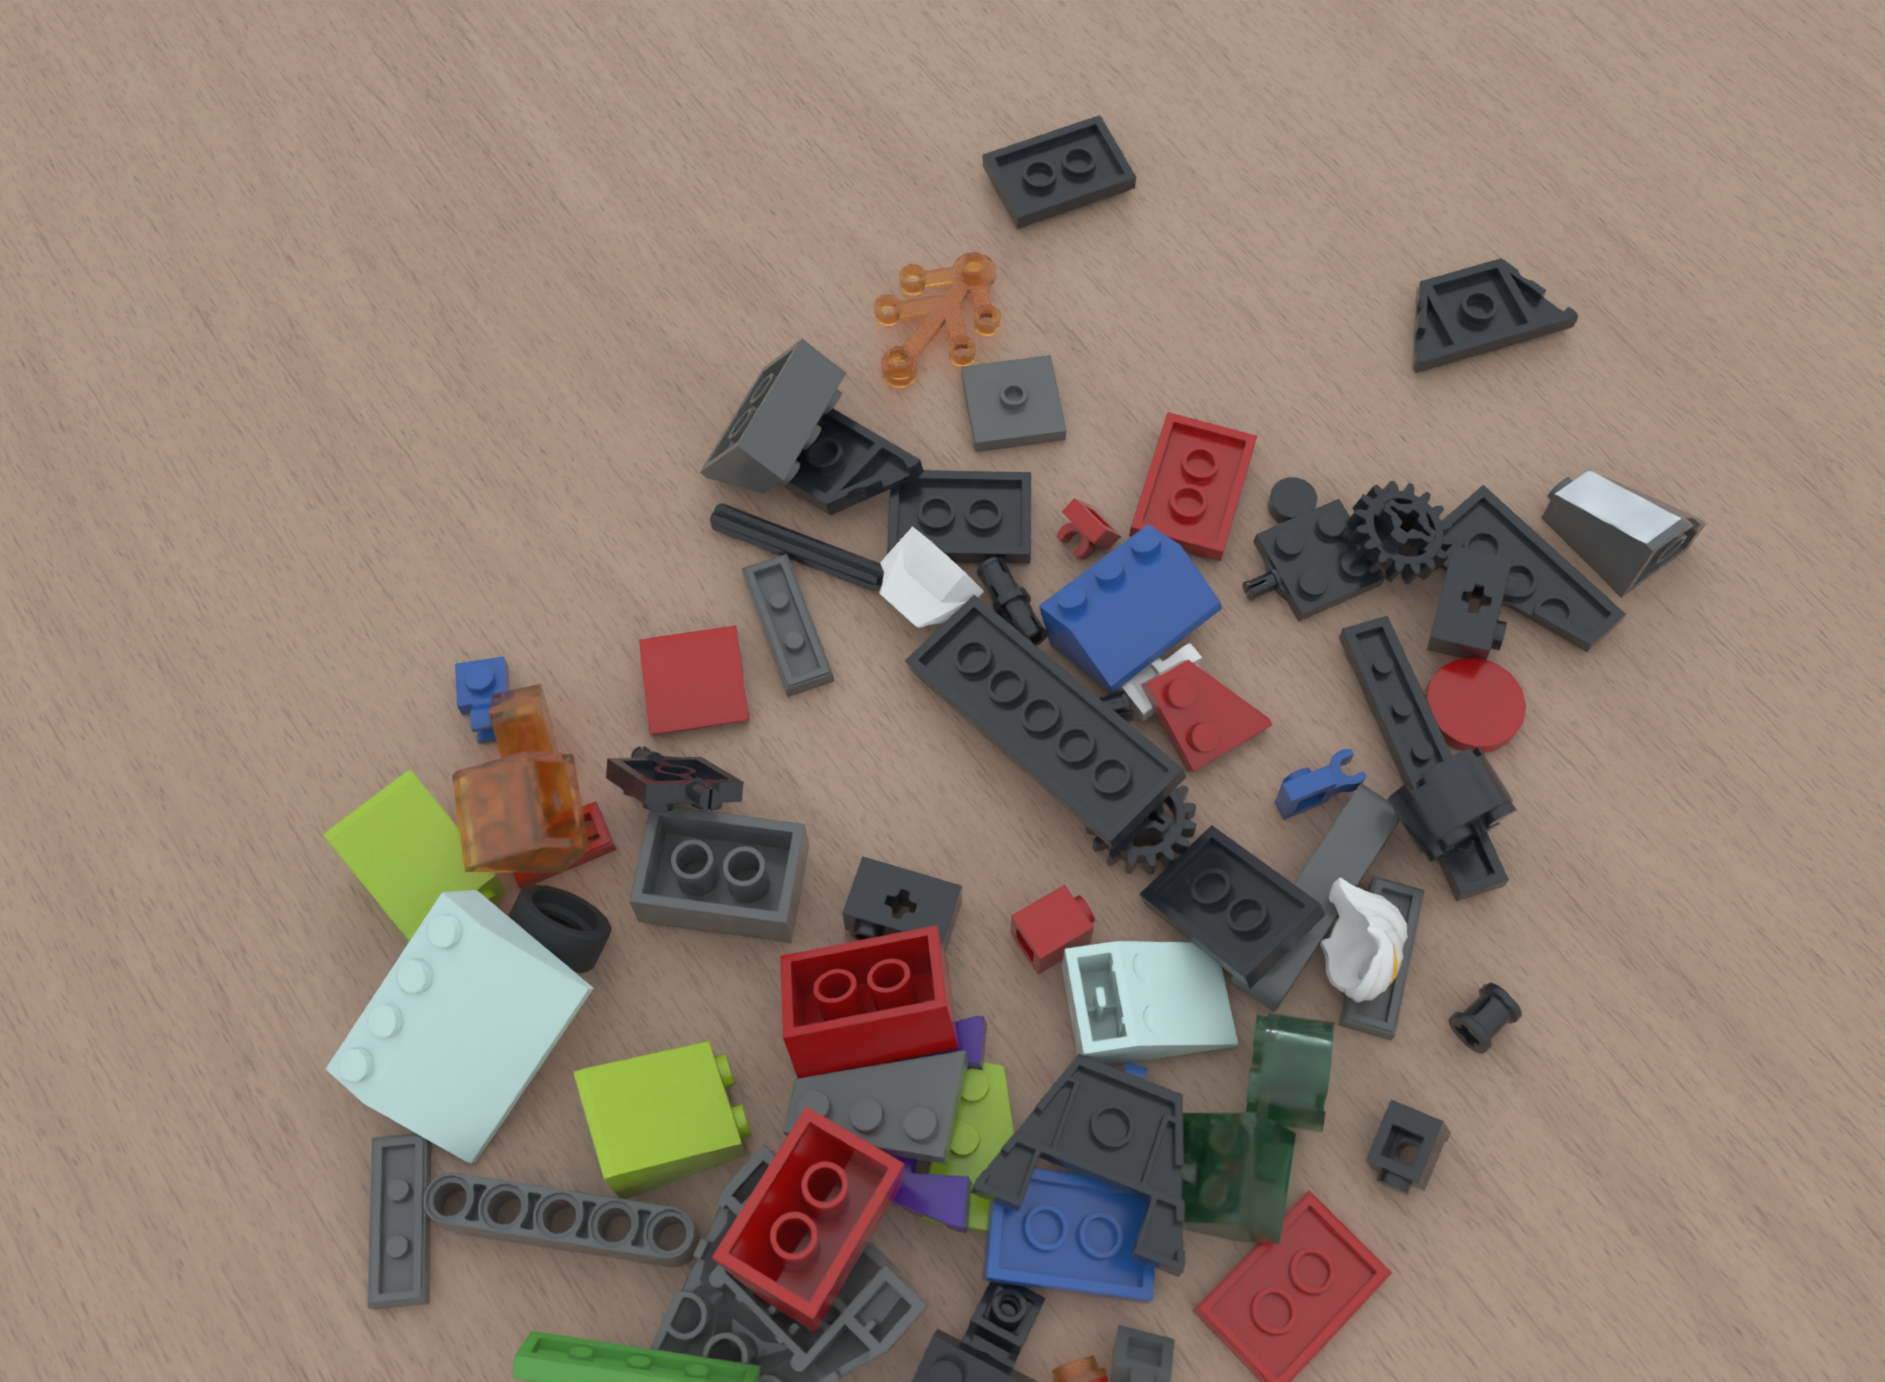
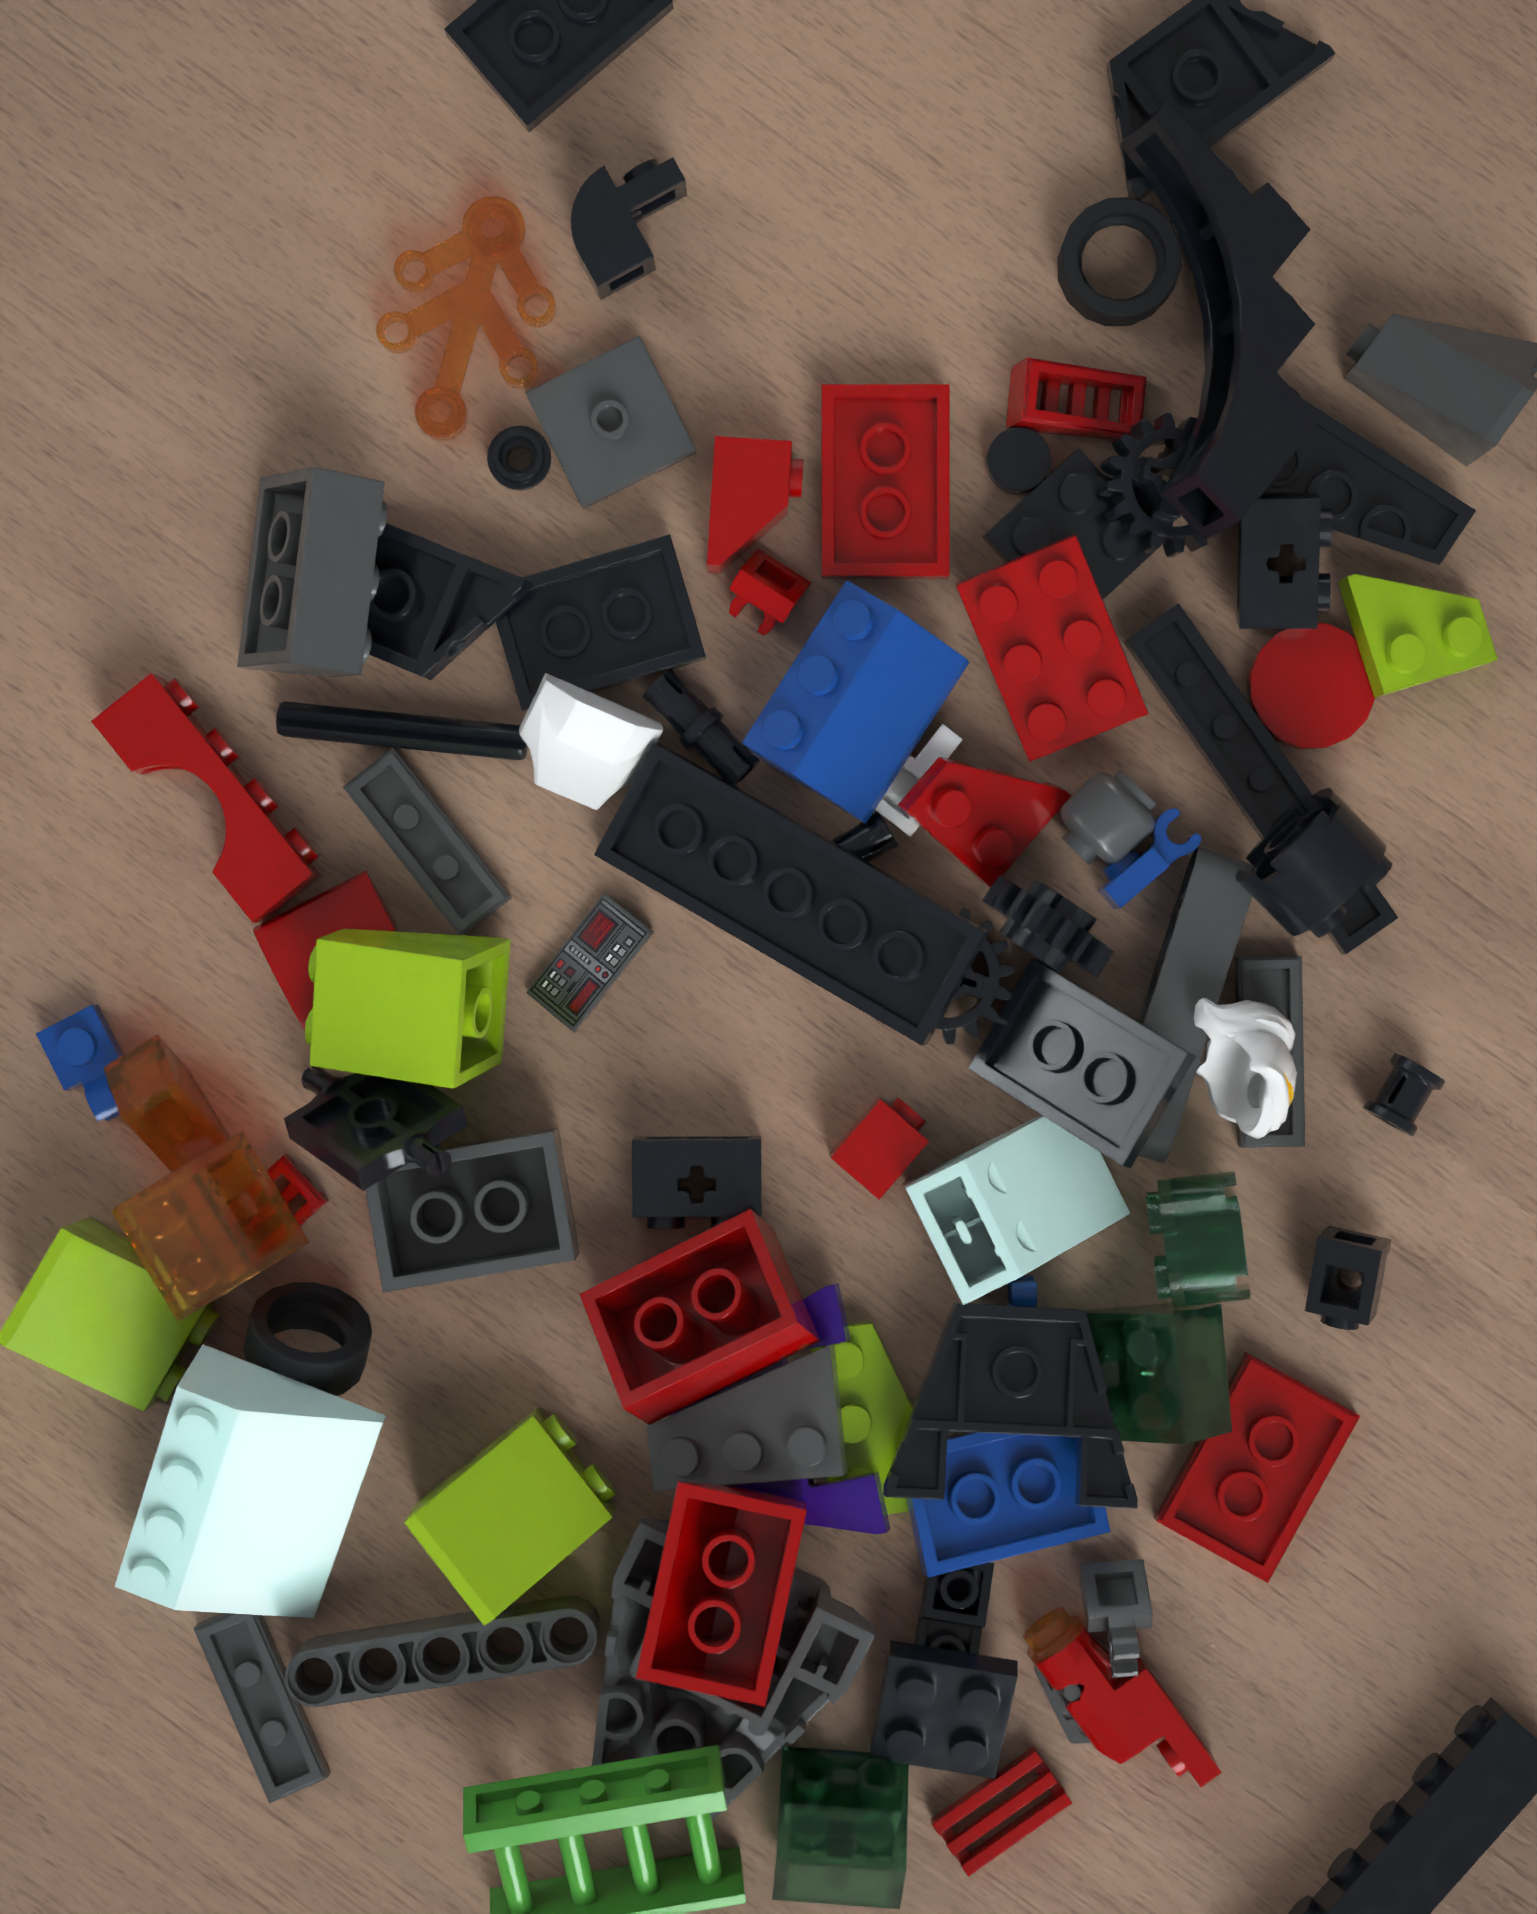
camera: 20 degrees left, 25 degrees up
(629, 502) = (259, 860): none -> red arch
(733, 710) = (408, 1005): none -> lime slope
(876, 738) = (590, 962): none -> slope
(942, 394) = (510, 440): none -> black plate
(1057, 282) = (606, 221): none -> black brick
(1094, 464) = (748, 494): none -> red slope
(1231, 796) = (1048, 926): none -> black gear
(1286, 618) = (1052, 648): none -> red plate
(1297, 742) = (1107, 818): none -> dark grey head
(1337, 456) = (1023, 397): none -> red slope
(1402, 371) = (1154, 227): none -> black tyre
(1482, 445) = (1250, 324): none -> black arch
(1561, 688) = (1414, 632): none -> lime wing

